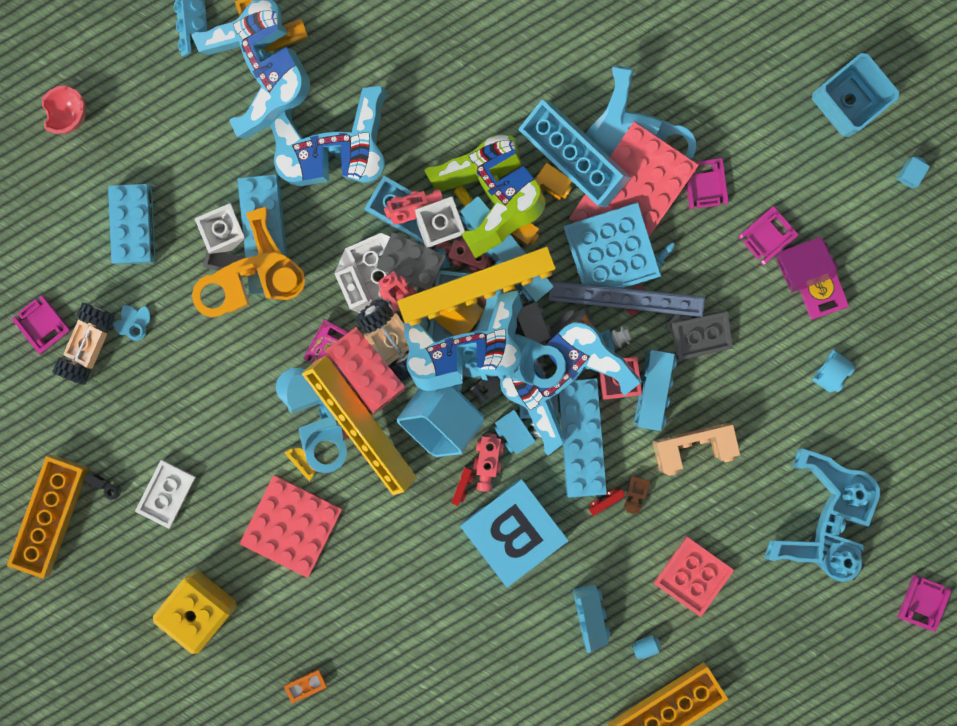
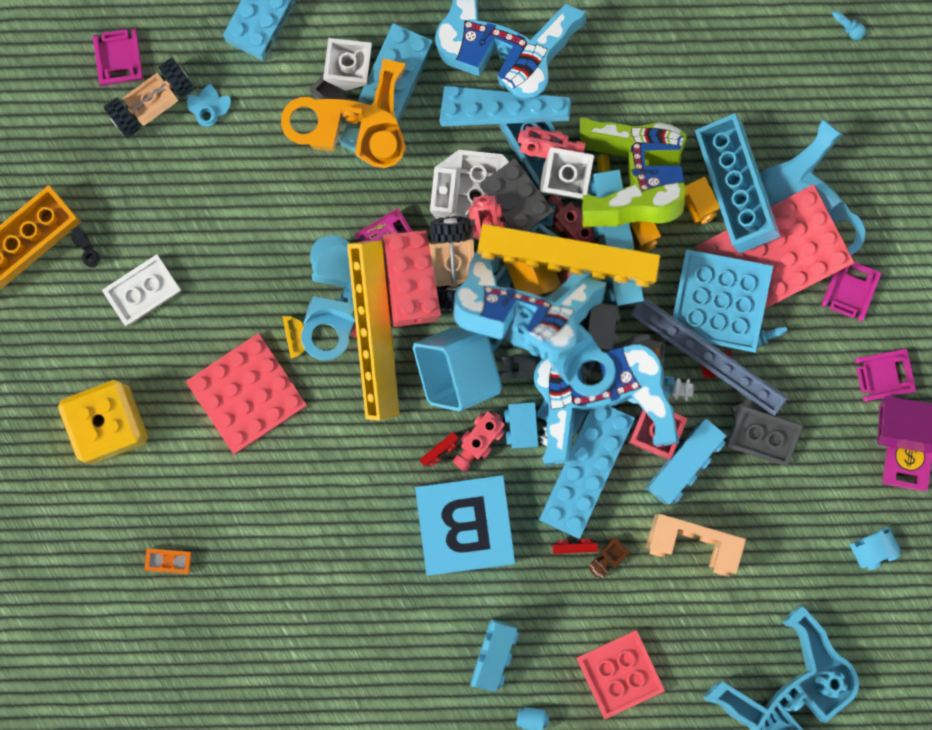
camera: 30 degrees right, 5 degrees down
(346, 203) = (484, 107): none -> medium azure wing

